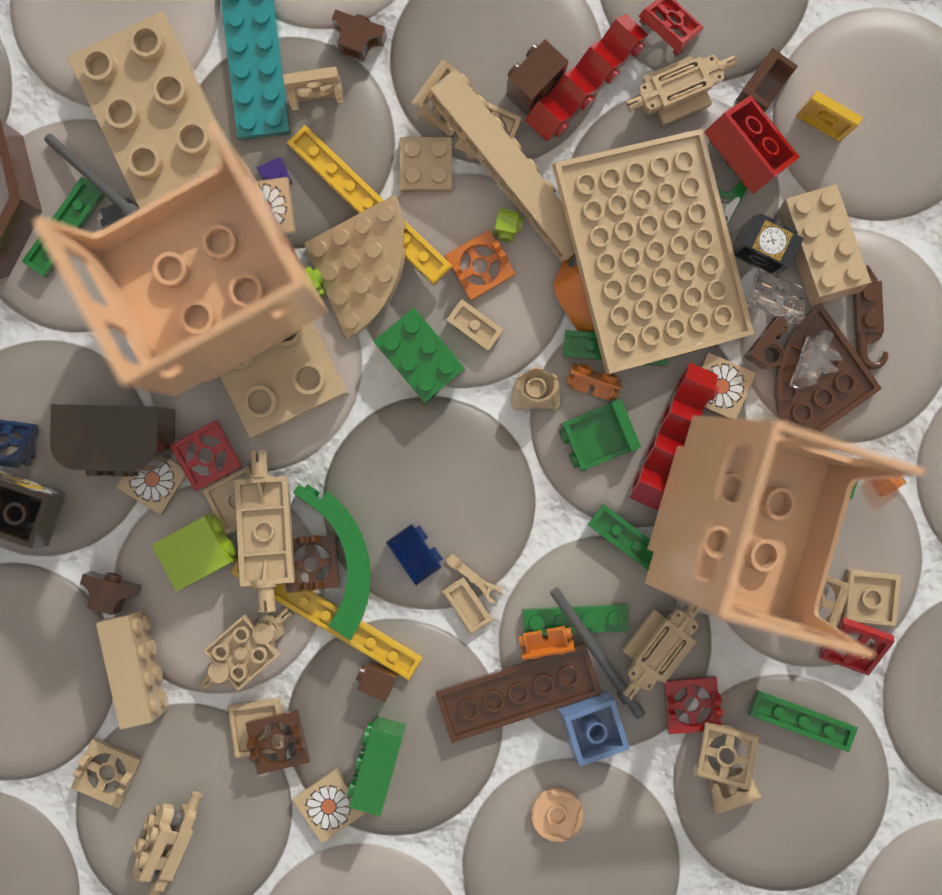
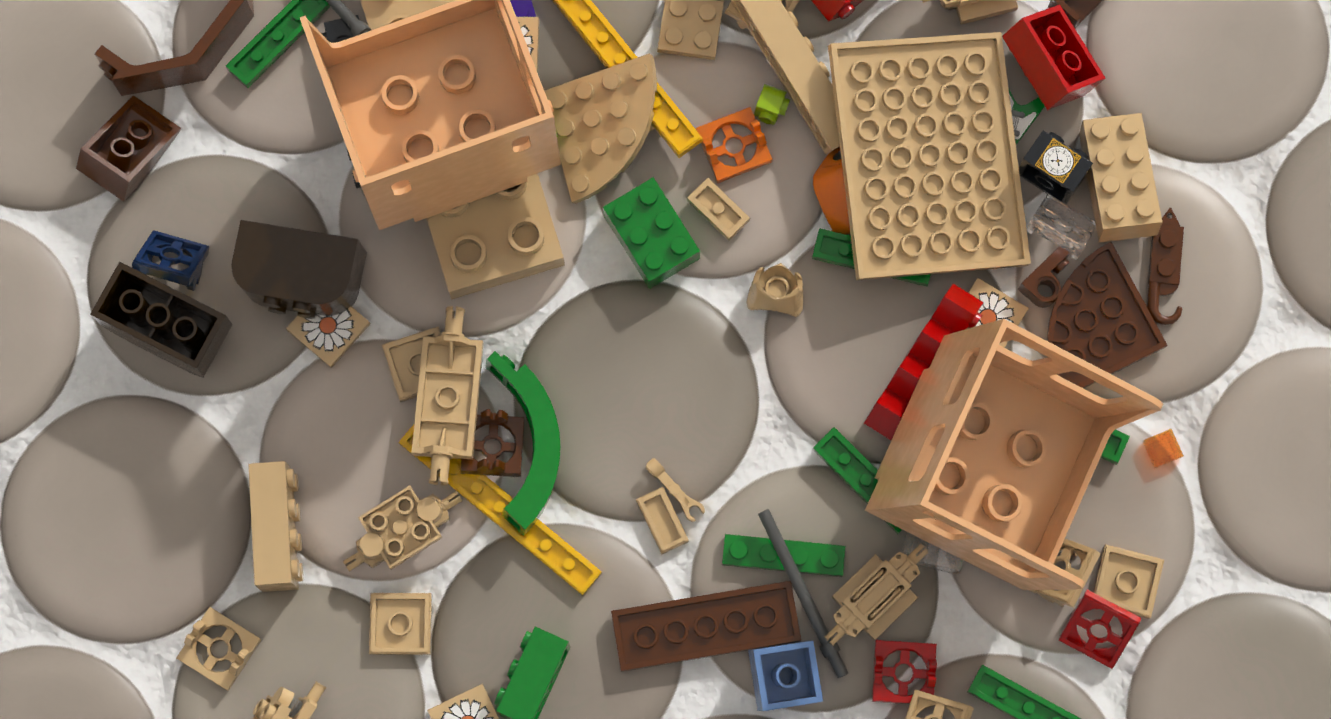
camera: 10 degrees right, 10 degrees down
(108, 591) = (258, 441): reddish brown brick -> none
(180, 451) = (387, 285): red piece -> none
(195, 551) = (365, 410): lime brick -> none
(265, 765) = (445, 659): reddish brown piece -> none
(376, 680) = (545, 587): reddish brown brick -> none
(414, 553) = (612, 451): clear blue brick -> none
(559, 642) = (735, 574): orange hinge -> none
(599, 435) = (840, 352): green panel -> none
(604, 383) = (834, 284): orange hinge -> none
(815, 360) = (1090, 299): clear piece -> none
(829, 116) = (1143, 39): yellow tile -> none

